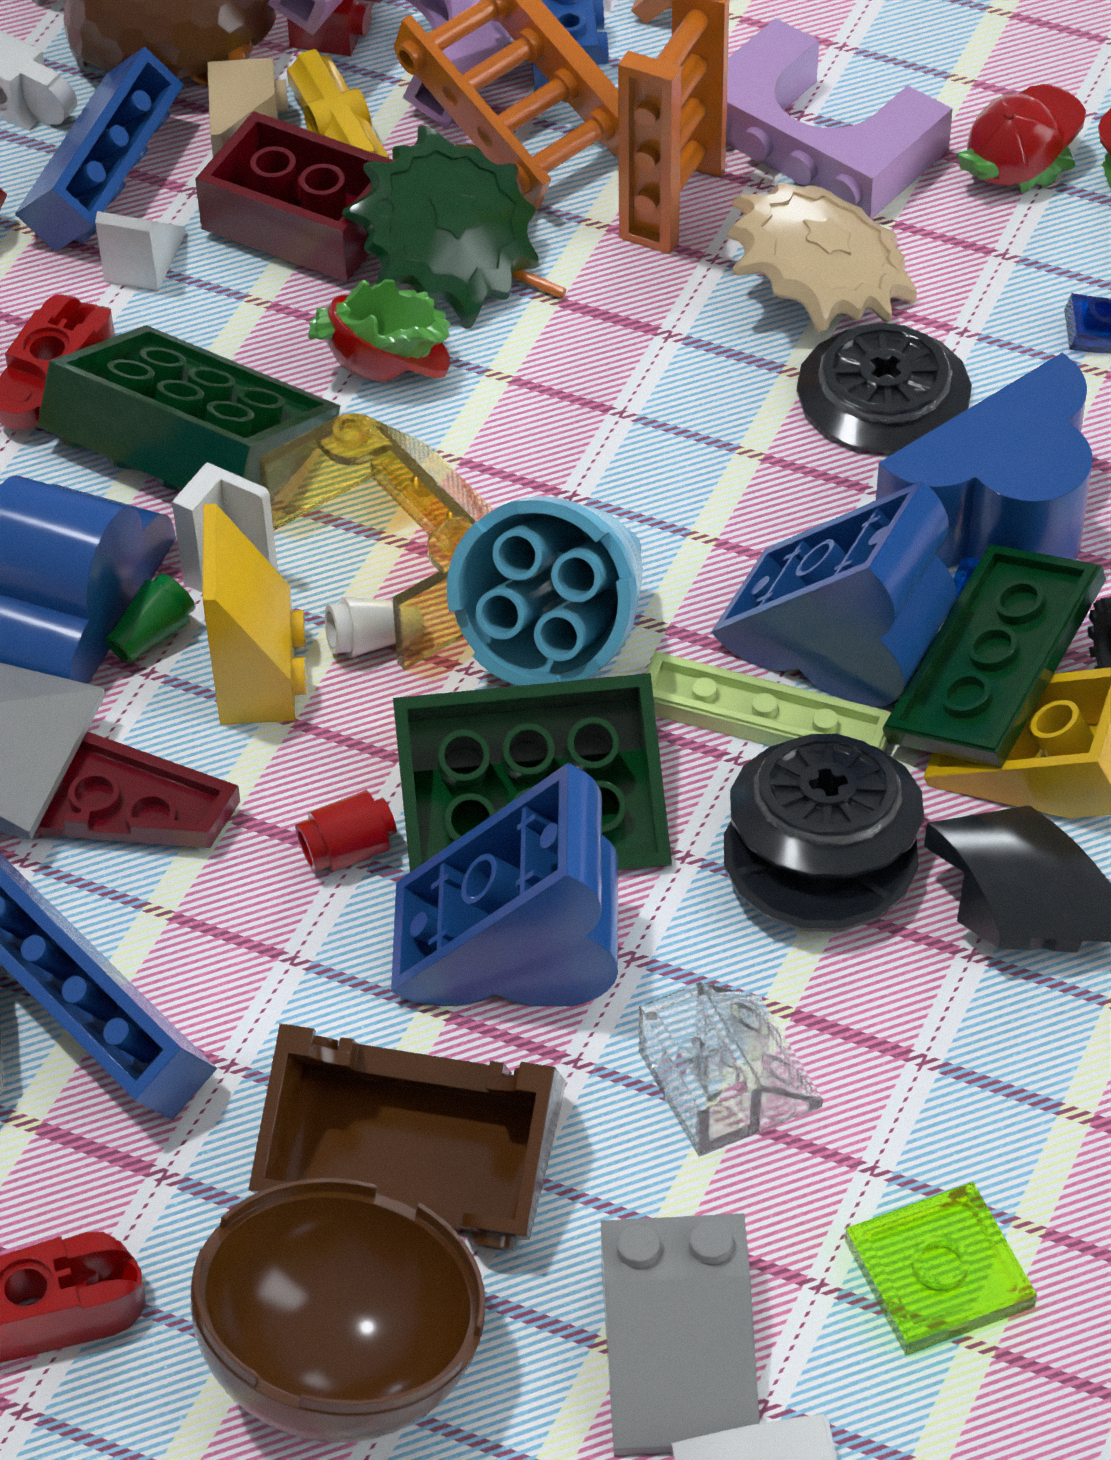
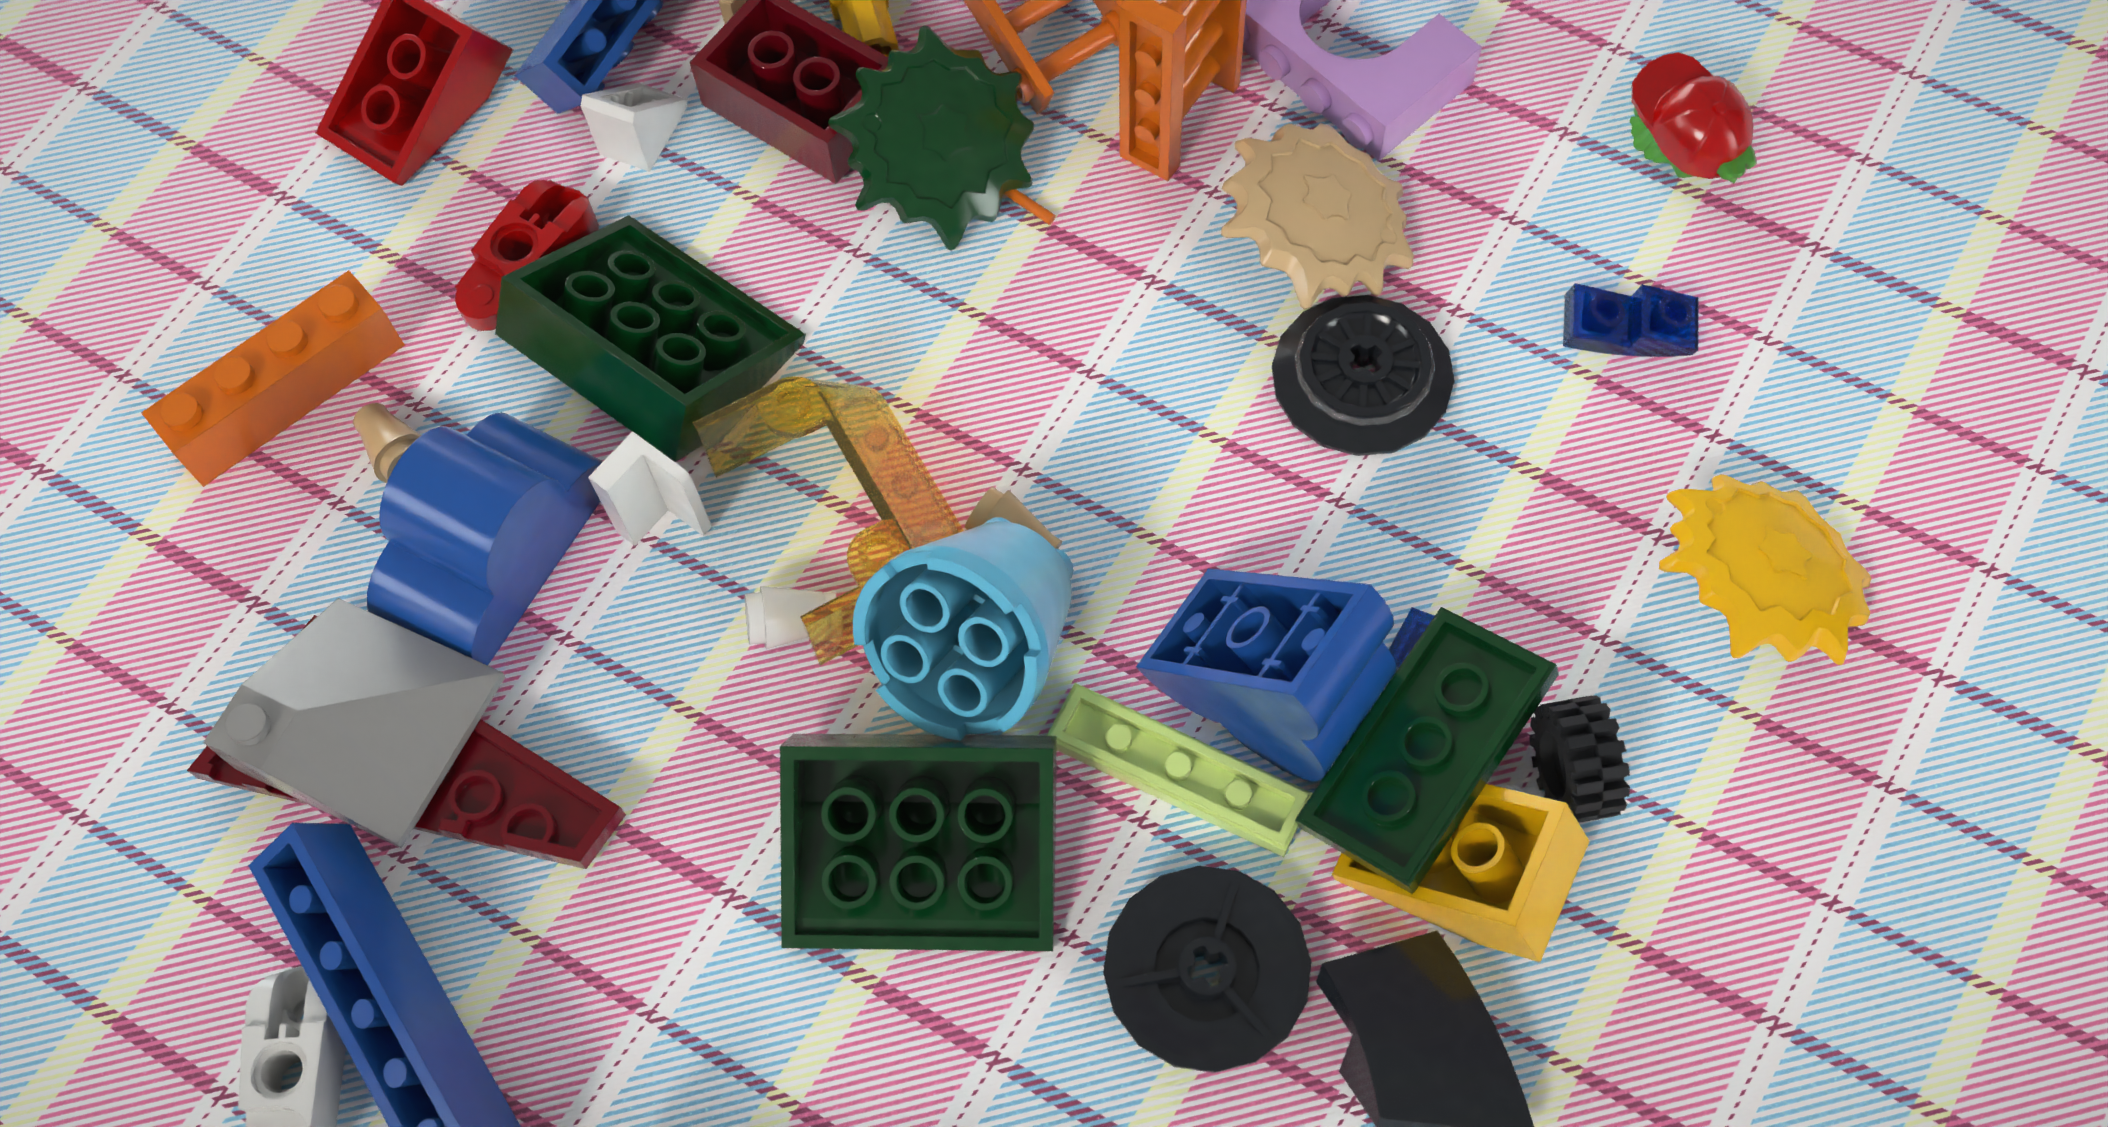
camera: 10 degrees right, 15 degrees up
(152, 616) = (569, 581): green cone -> none
(249, 627) = (650, 621): yellow slope -> none
(346, 832) = (721, 876): red brick -> none
(384, 332) = (857, 261): bright green hair -> none
(515, 906) = (868, 1019): blue brick -> none
(826, 806) = (1209, 964): black piece -> none
(1007, 467) = (1466, 526): blue brick -> none
(1024, 137) = (1553, 85): red hair -> none

